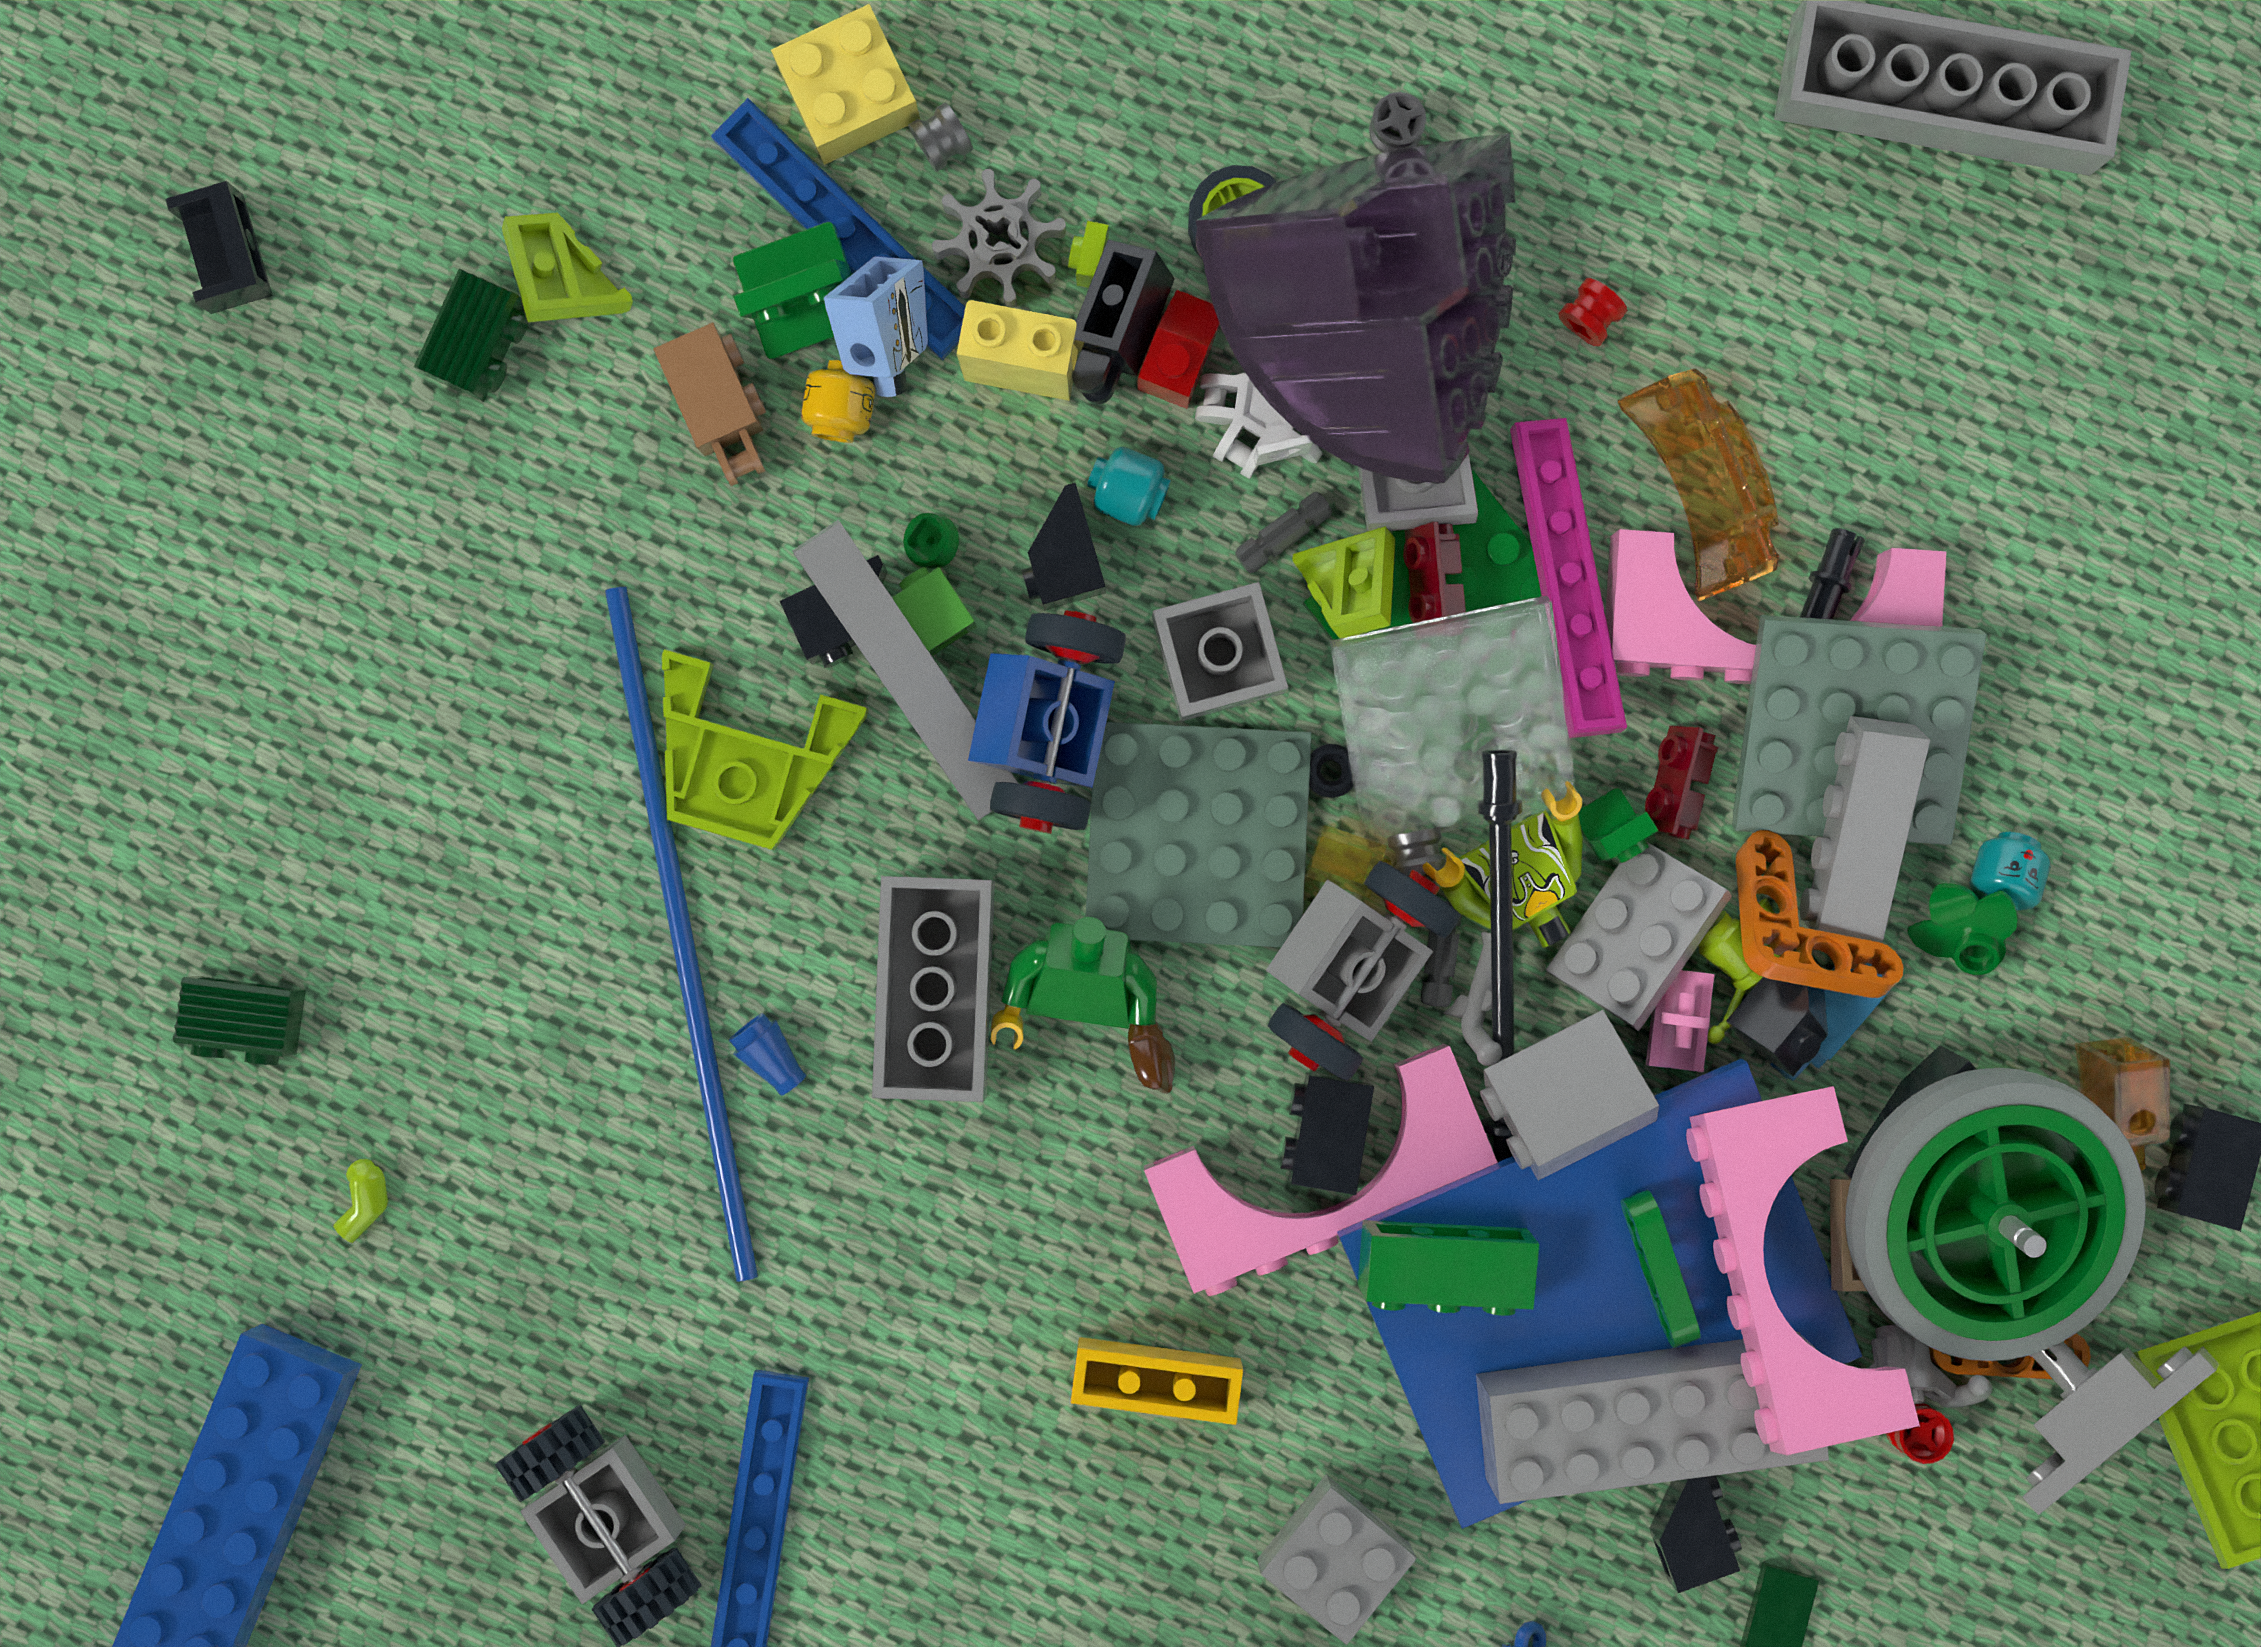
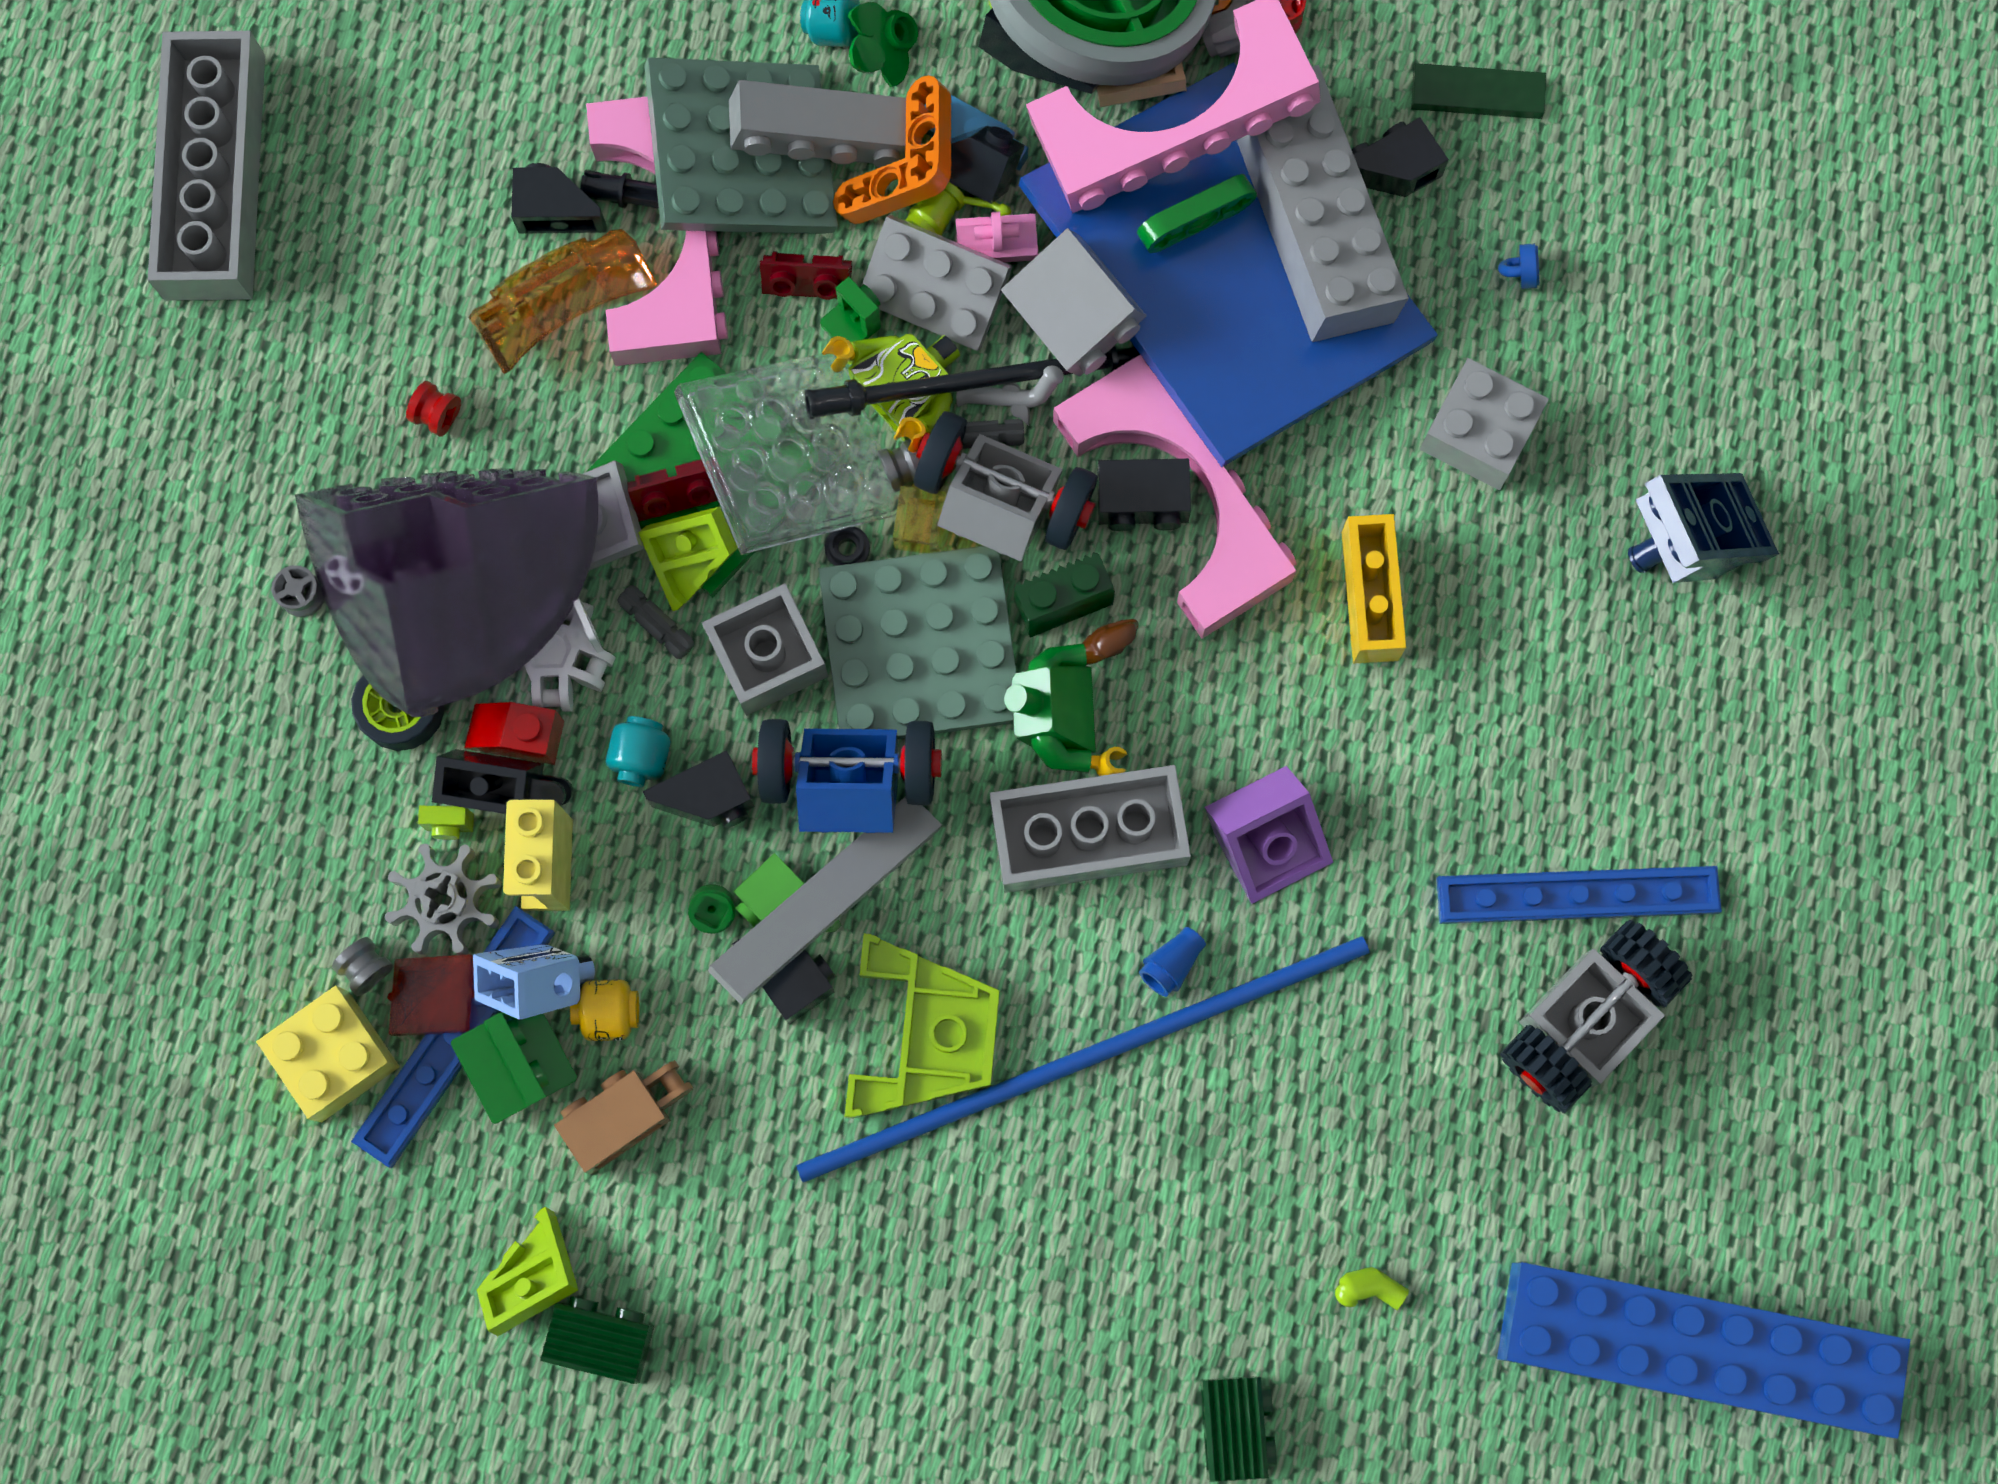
camera: 95 degrees left, 10 degrees down
(893, 210) = (431, 995): none -> clear red piece
(893, 1195) = (1270, 833): none -> medium lavender slope
(1221, 1014) = (1064, 594): none -> dark green brick
(1447, 1266) = (1230, 371): green brick -> none
(1568, 576) = (650, 387): dark pink tile -> none
(1828, 489) = (551, 203): none -> black slope

